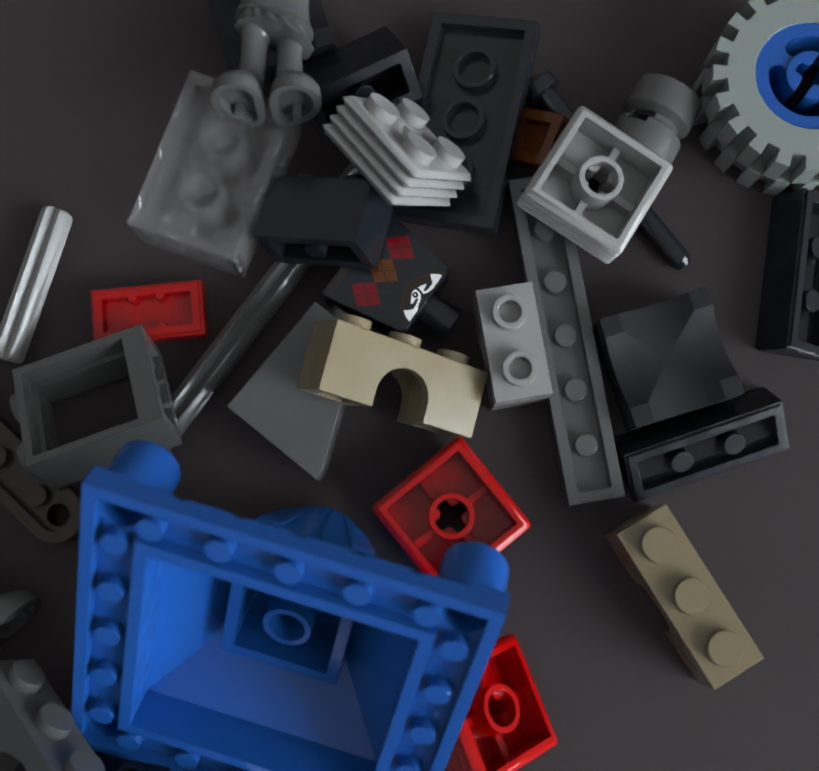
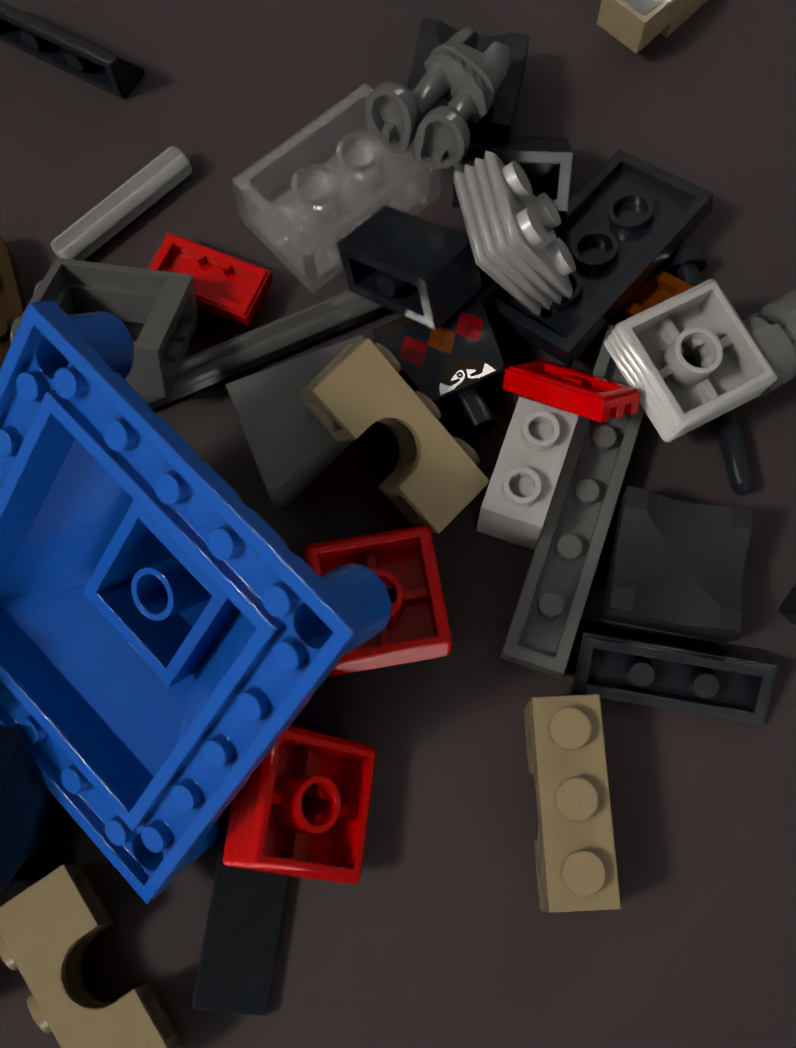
camera: 30 degrees right, 10 degrees down
(513, 261) = (571, 390): none -> red tile

